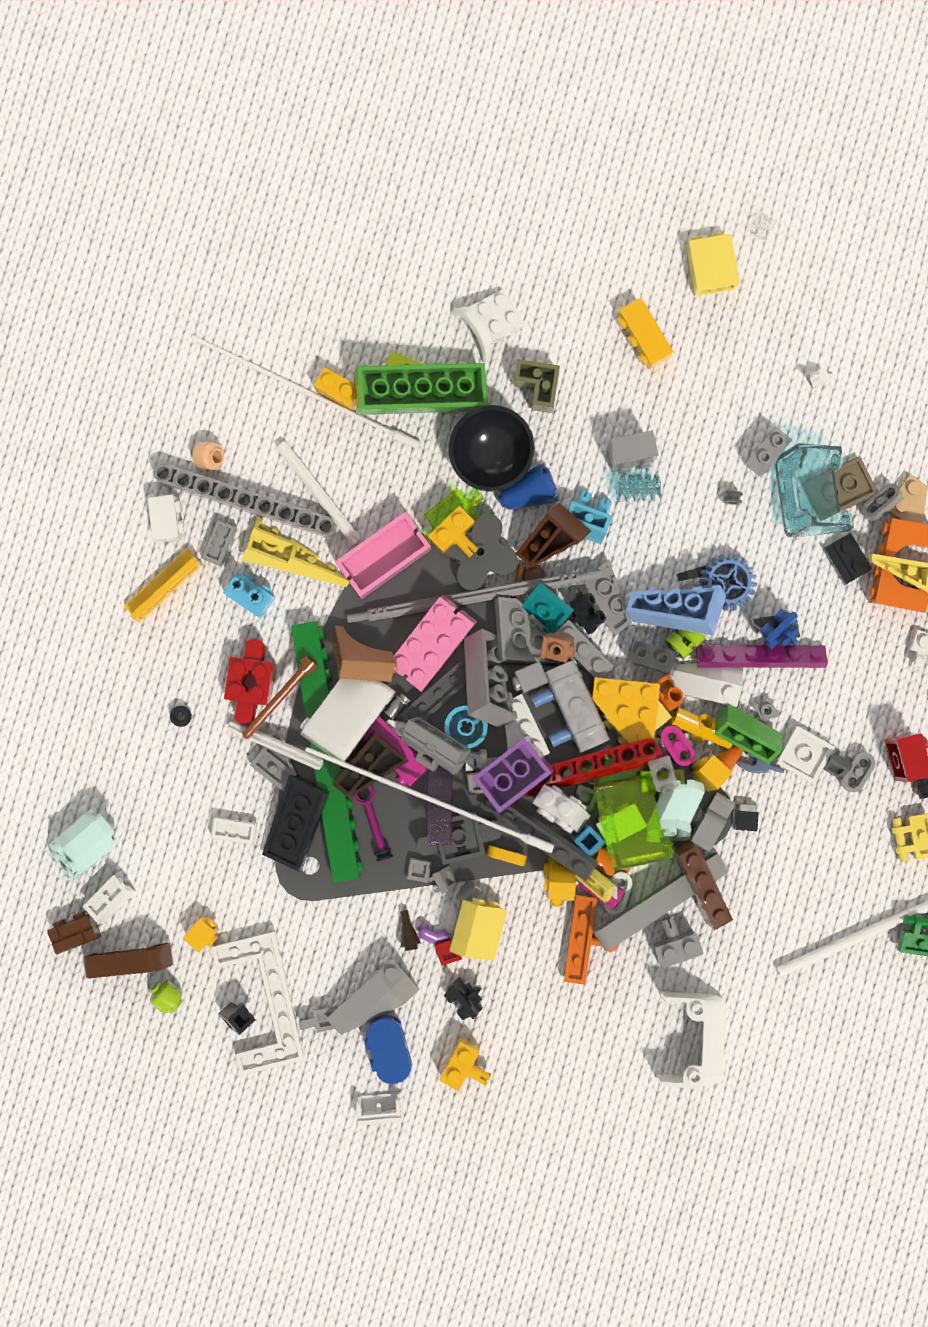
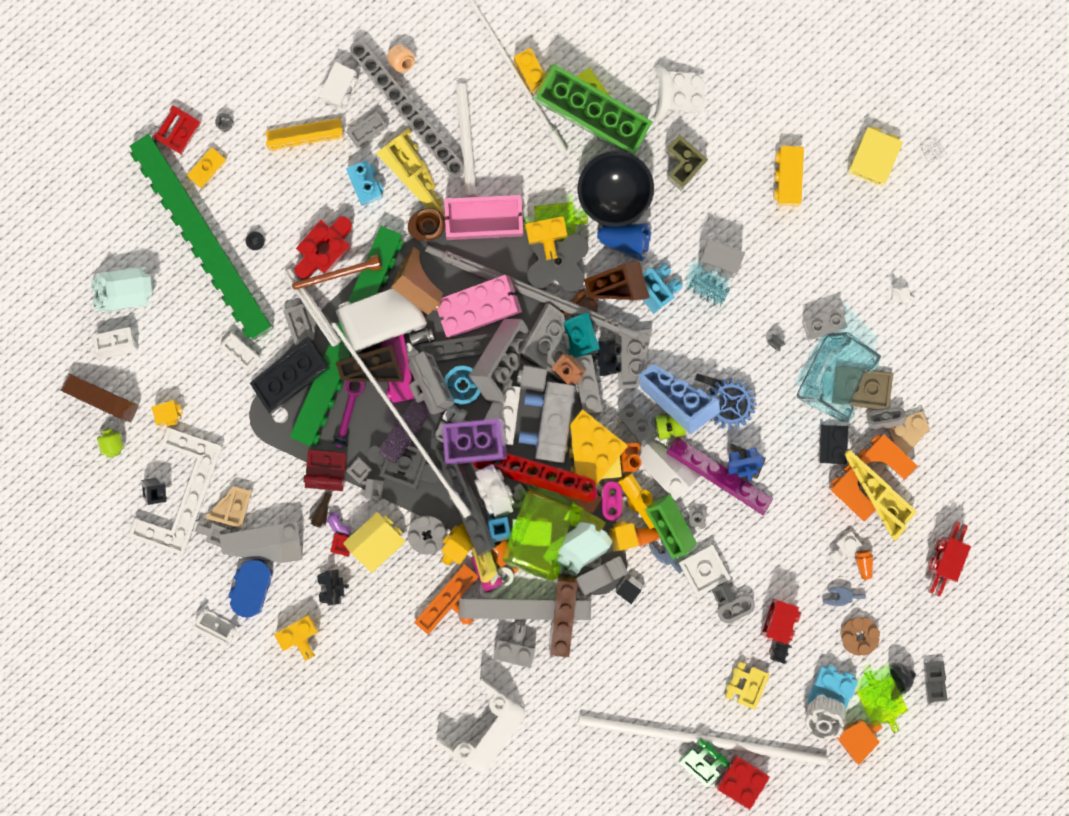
camera: 25 degrees right, 0 degrees up
(45, 658) = (182, 132): none -> red plate
(73, 626) = (229, 122): none -> dark grey bush
(73, 933) = (72, 351): reddish brown brick -> none
(90, 676) = (206, 168): none -> yellow plate
(127, 746) = (201, 237): none -> green brick
(321, 983) = (232, 507): none -> tan wing
(333, 597) = (426, 224): none -> reddish brown piece
(387, 890) = (325, 470): none -> dark red plate
(468, 891) = (386, 509): light grey tile -> none
(506, 855) = (431, 500): yellow beam -> none
(523, 902) = (429, 545): none -> light grey brick
(659, 766) = (586, 505): light grey brick -> none

